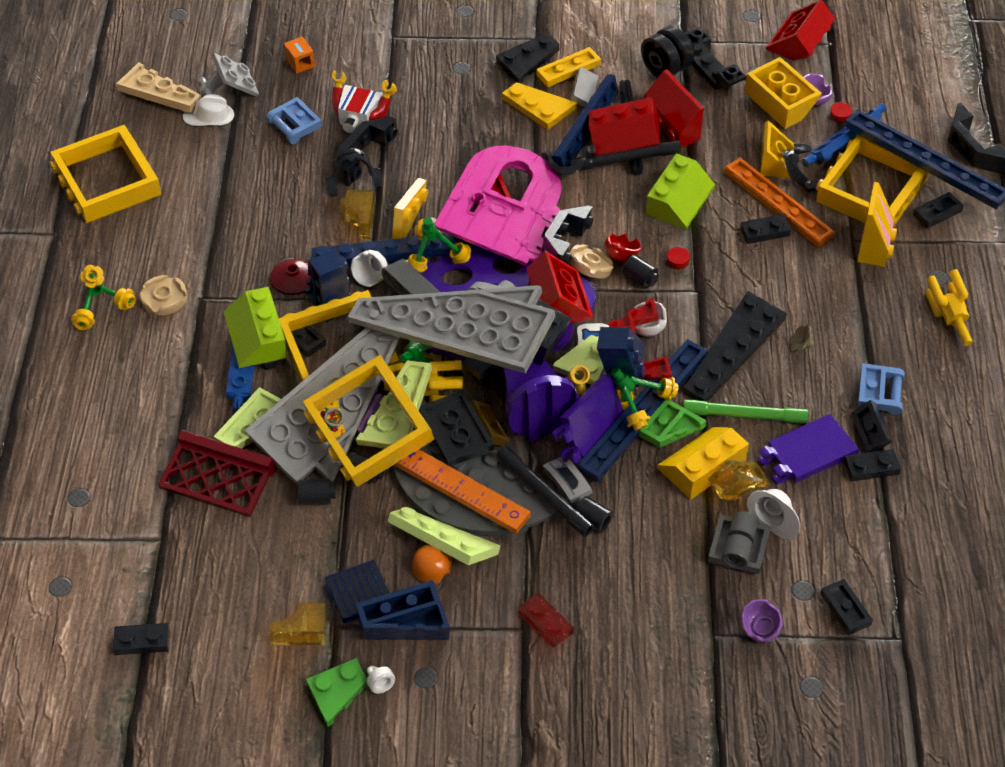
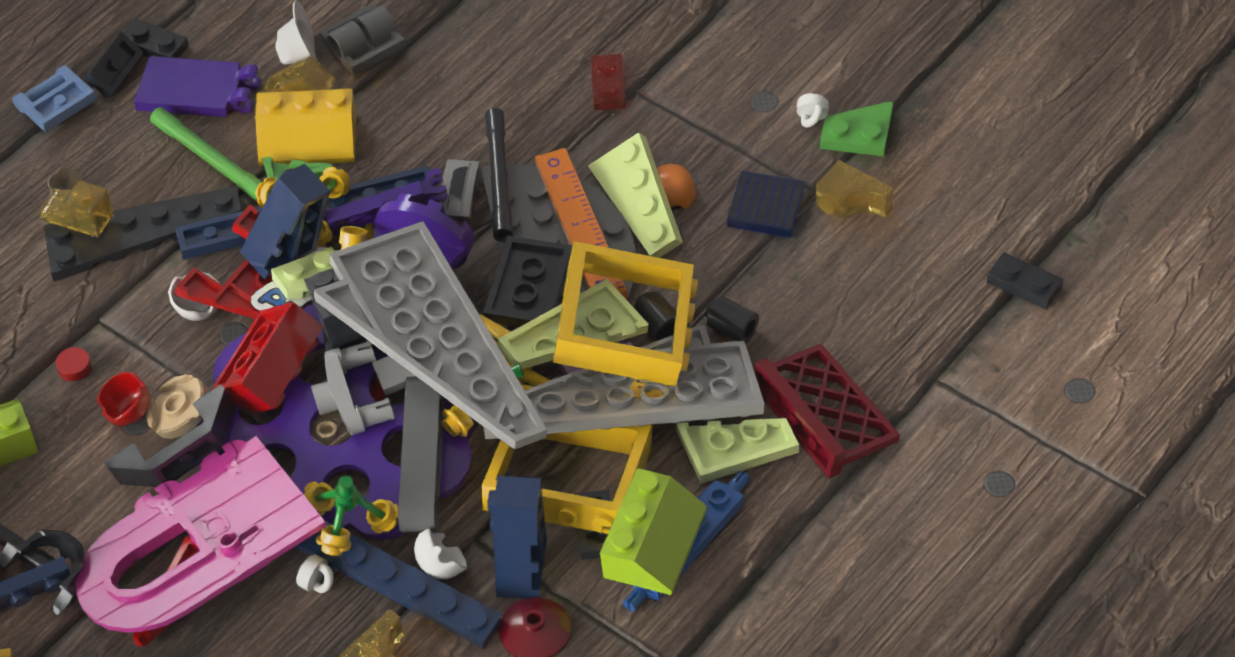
camera: 140 degrees left, 0 degrees up
(404, 615) = (745, 141): dark blue wedge -> none
(408, 208) = (325, 601): yellow wing -> none
(490, 423) = (482, 282): pearl gold plate -> none
(595, 512) = (470, 137): black brick -> none
(640, 271) = (138, 357): black brick -> none
(767, 317) = (80, 209): none -> clear yellow arch

